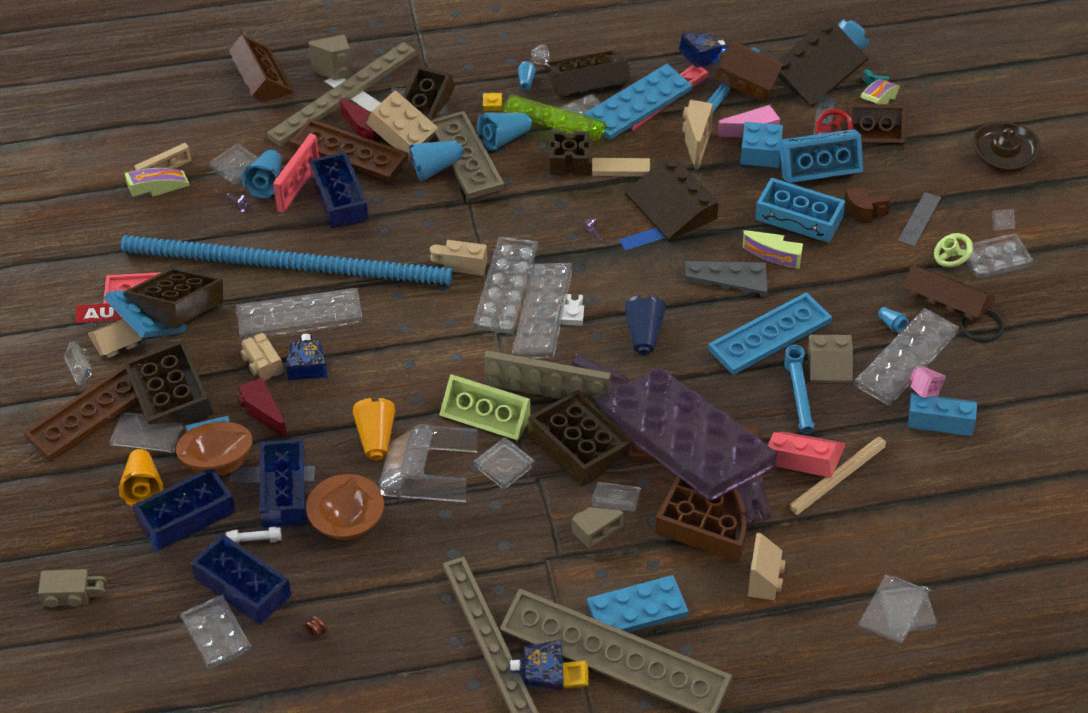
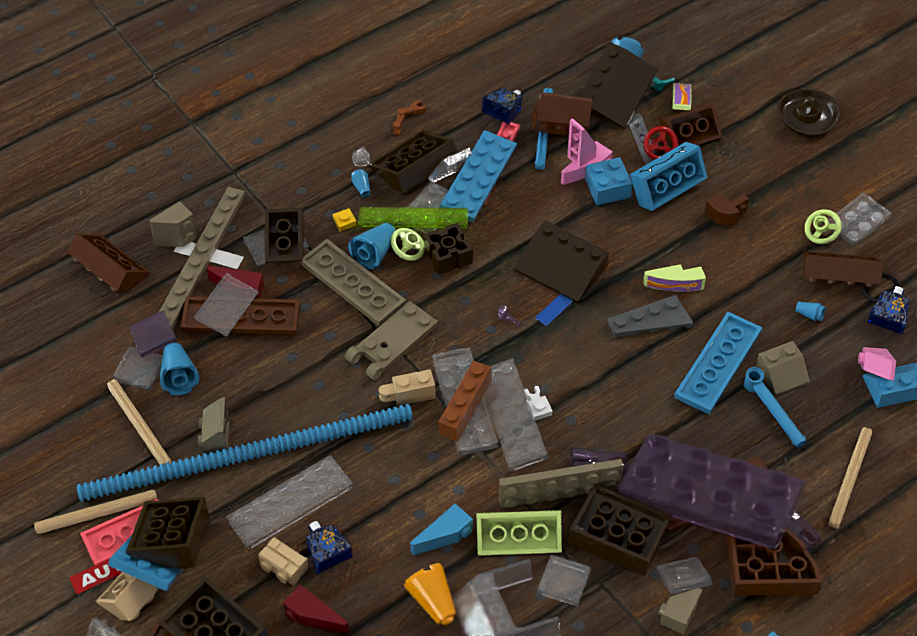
camera: 25 degrees left, 5 degrees up
(127, 263) = (94, 511): none -> tan axle
(155, 181) = (72, 415): slope -> none
(169, 159) = (68, 393): tan plate -> none
(208, 205) = (138, 422): none -> tan axle
(240, 202) = (168, 406): clear purple hand -> none
(261, 138) = (152, 333): none -> clear purple tile
(269, 229) = (214, 427): none -> dark tan slope
(295, 174) = (209, 359): coral tile -> none
(338, 189) = (258, 361): clear blue brick -> none
(340, 133) = (226, 304): none -> clear piece
(401, 123) = (281, 274): tan brick -> none
(421, 382) = (444, 531): none -> dark azure slope
(434, 157) = (330, 297): dark azure cone -> none
(478, 213) = (399, 332): none -> dark tan hinge
(501, 280) = (465, 401): none -> dark orange brick
(538, 136) = (410, 240): none -> yellowish green piece
(613, 82) = (450, 165): none -> clear tile
(618, 29) = (415, 108): none -> dark orange piece
(620, 166) = (498, 245): tan tile -> none
(644, 322) = (611, 394): dark blue cone -> none
(697, 129) = (548, 188): tan slope -> none
(745, 100) = (580, 146): none -> bright pink slope
(765, 569) = (848, 595): tan slope -> none
(800, 210) = (678, 234): dark azure brick -> none
(806, 453) = (818, 466): coral slope -> none
(909, 350) = (840, 341): clear plate -> none
(919, 219) = (774, 205): flat silver sticker -> none
(973, 344) = (890, 310): none -> clear blue torso
(1003, 219) = (845, 182): clear plate -> none

